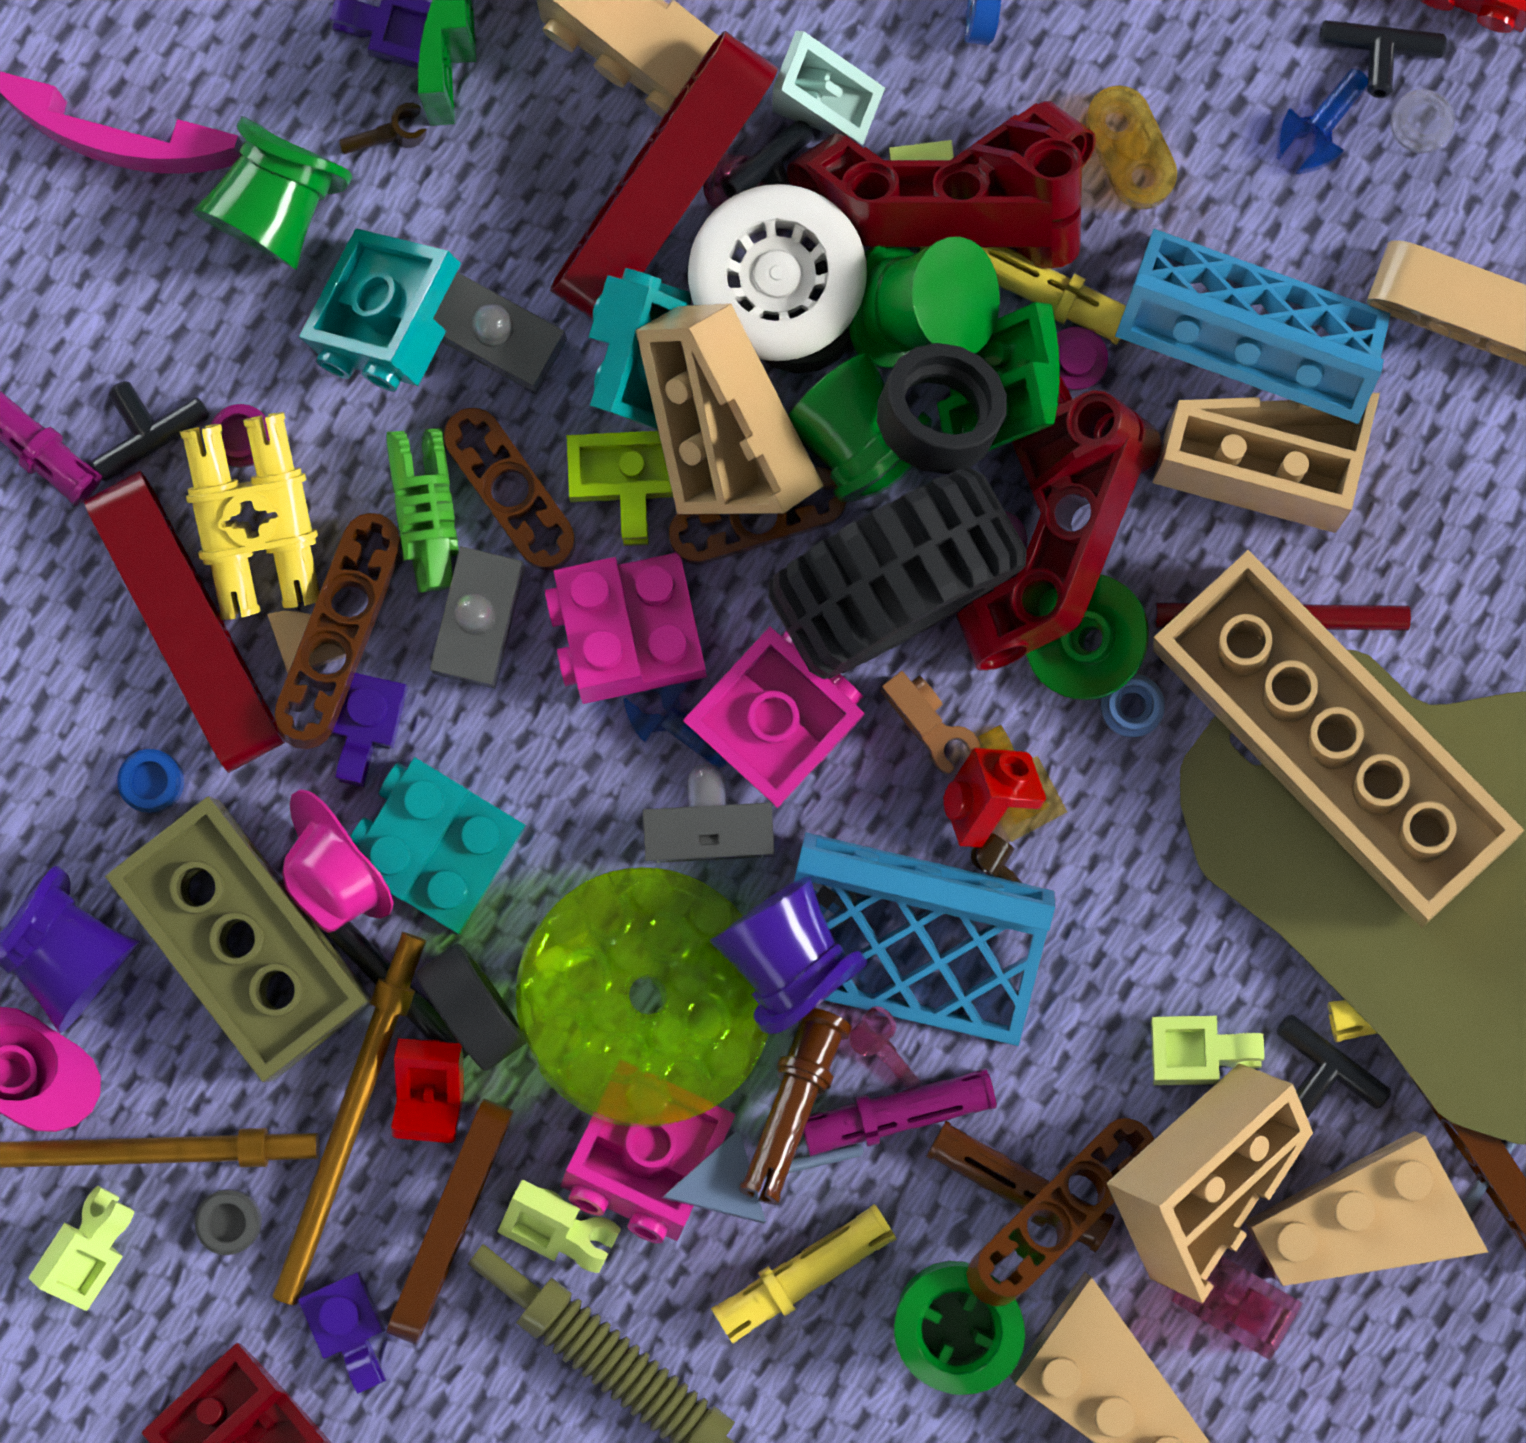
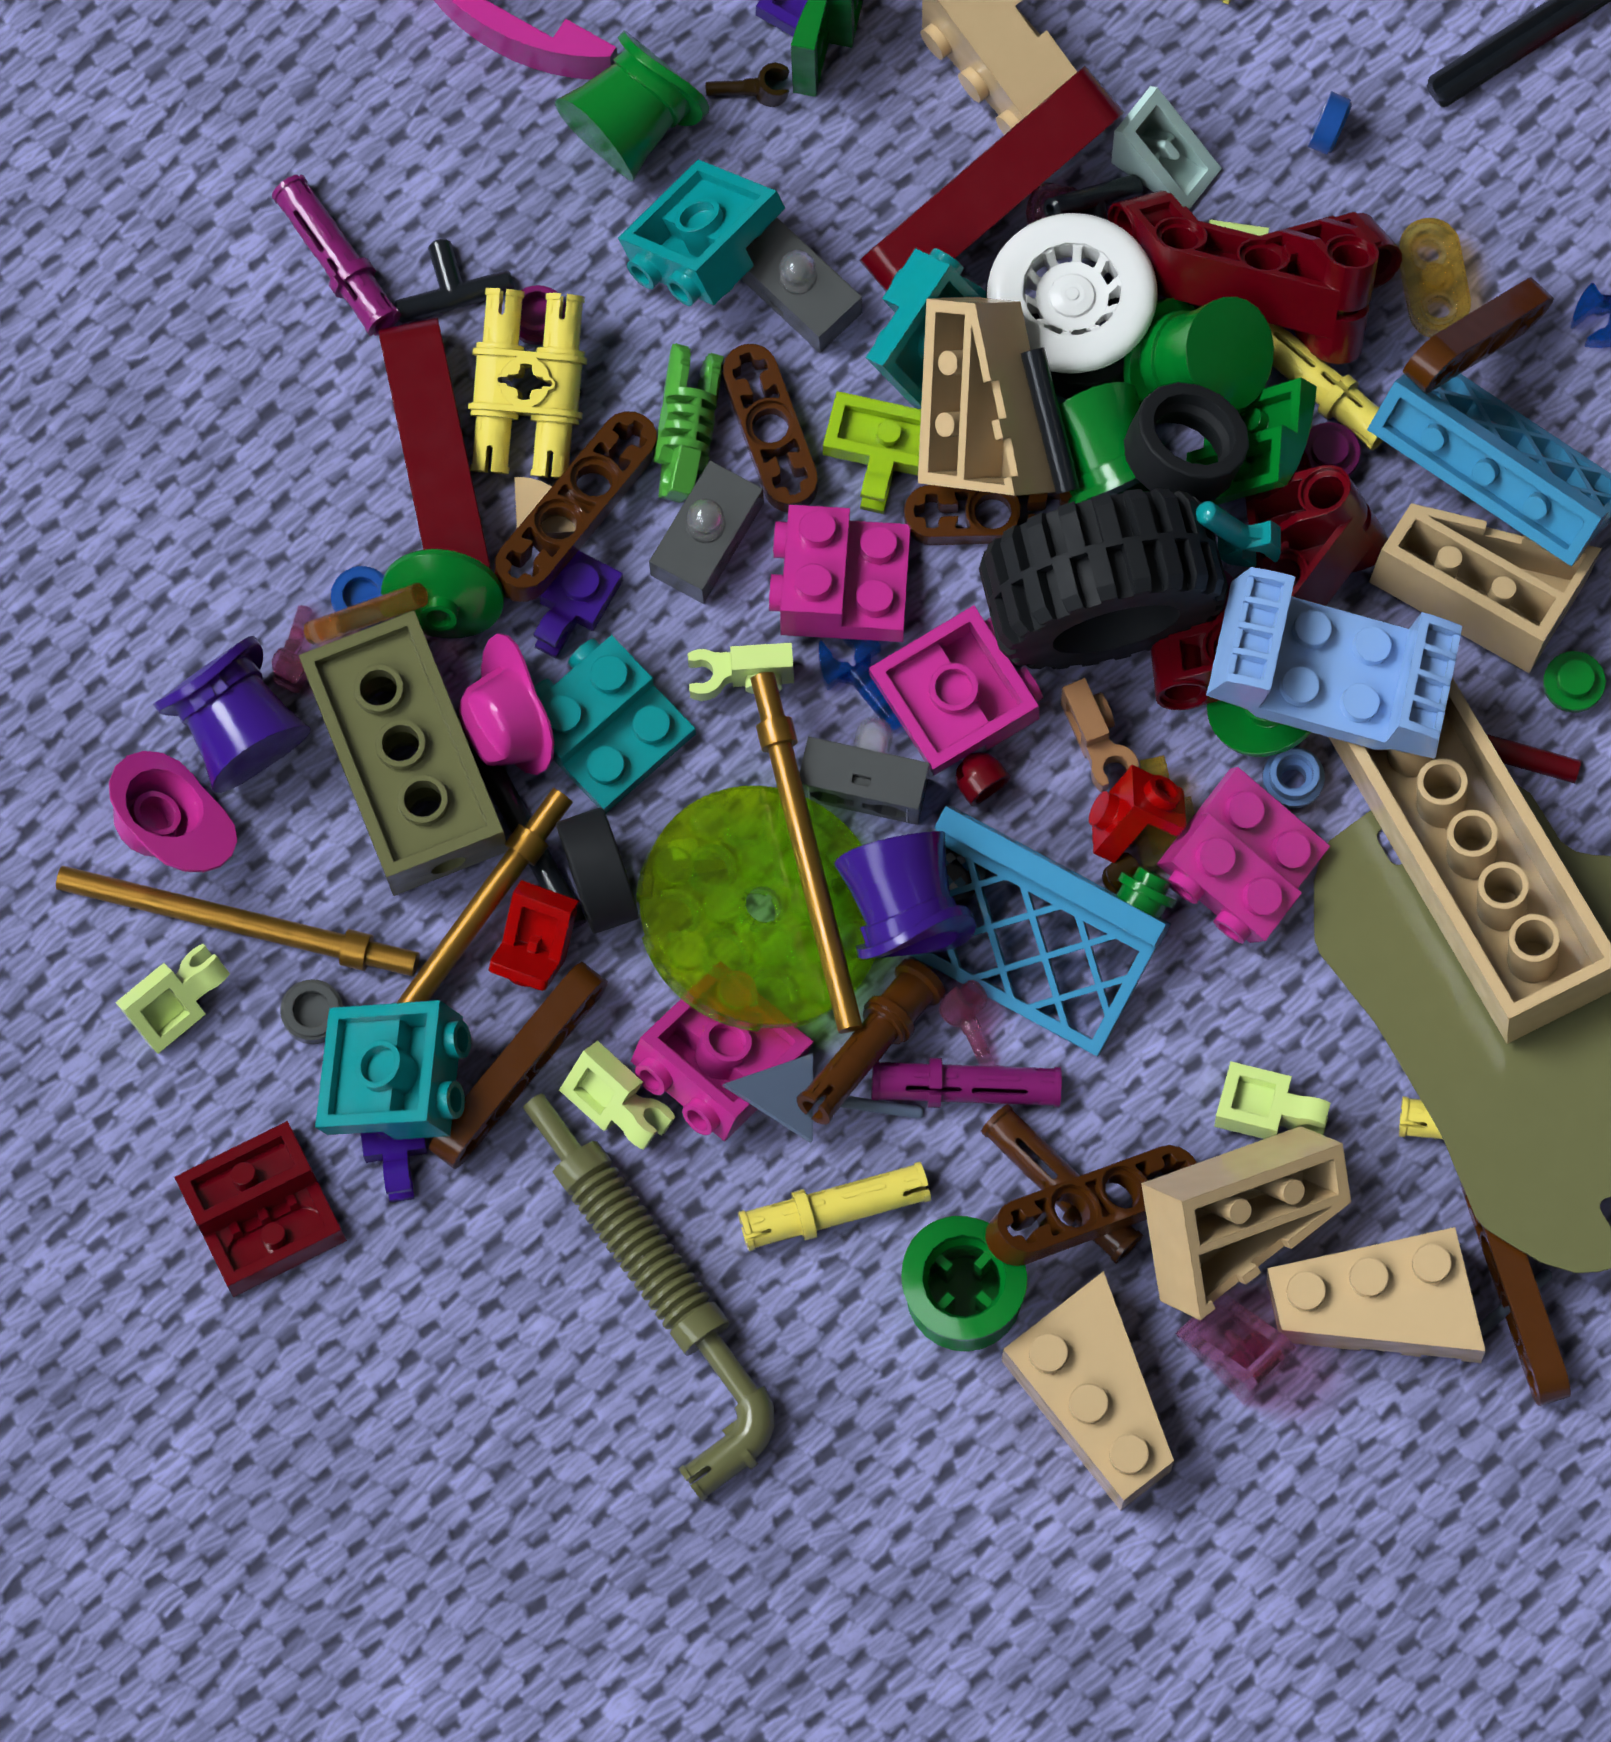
camera: 20 degrees right, 10 degrees down
(93, 867) = (286, 662): none -> clear pink hand
(160, 805) = (366, 613): none -> clear orange piece
(231, 763) = (461, 591): none -> green dish
(327, 1272) = (392, 1070): none -> teal plate
(571, 746) = (740, 666): none -> yellowish green plate
(612, 820) = (777, 738): none -> pearl gold bar
(795, 419) = (1050, 420): none -> black piece
(822, 793) = (980, 777): none -> dark red hinge
(1023, 496) = (1237, 540): none -> teal bar
(1023, 872) = (1146, 891): none -> green plate
(1108, 807) = (1243, 858): none -> dark pink plate
(1155, 601) = (1333, 667): none -> light blue plate
(1198, 205) = (1477, 335): none -> reddish brown beam
(1329, 1067) = (1387, 1158): black piece -> none
(1382, 529) = (1574, 681): none -> green plate

